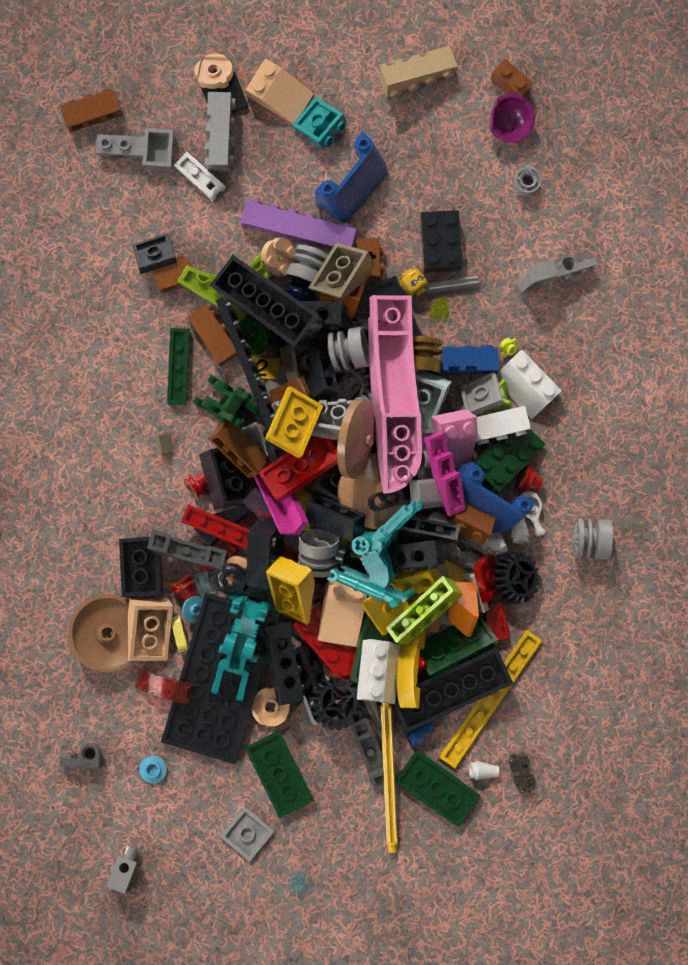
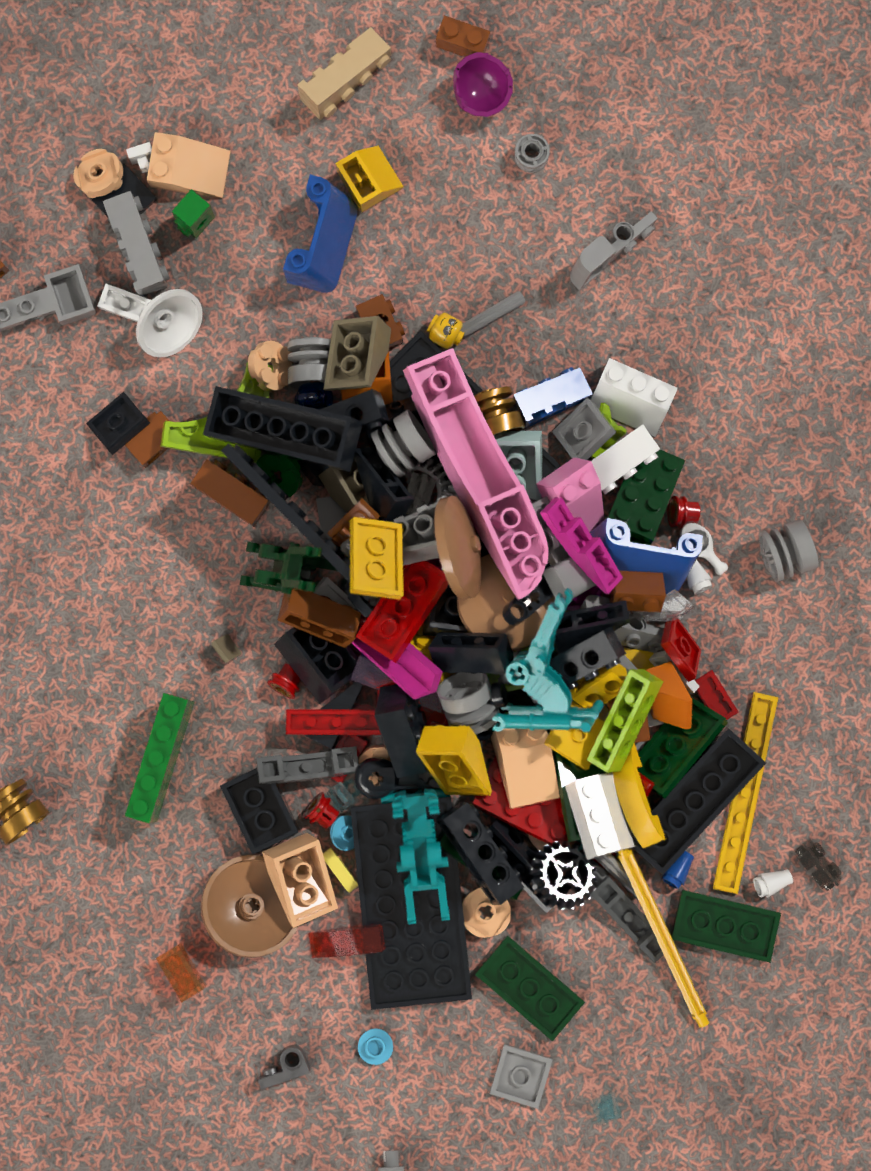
camera: 20 degrees left, 0 degrees up
(37, 659) = (181, 972): none -> clear orange brick
(84, 502) = (159, 758): none -> green brick
(178, 366) = (203, 548): dark green plate -> none
(219, 197) = (169, 323): none -> white dish
(248, 70) = (141, 155): none -> white tile
(268, 127) = (192, 215): none -> green brick
(268, 367) = (313, 504): yellow sticker -> none
(296, 226) = (276, 320): medium lavender brick -> none
(320, 123) = (253, 183): teal plate -> none
(403, 151) = (368, 177): none -> yellow slope
(439, 307) = (489, 348): clear neon green tile -> none
(441, 241) = (458, 267): black brick -> none
(508, 347) = (592, 361): neon yellow plate -> none
(516, 578) = (716, 634): black gear -> none

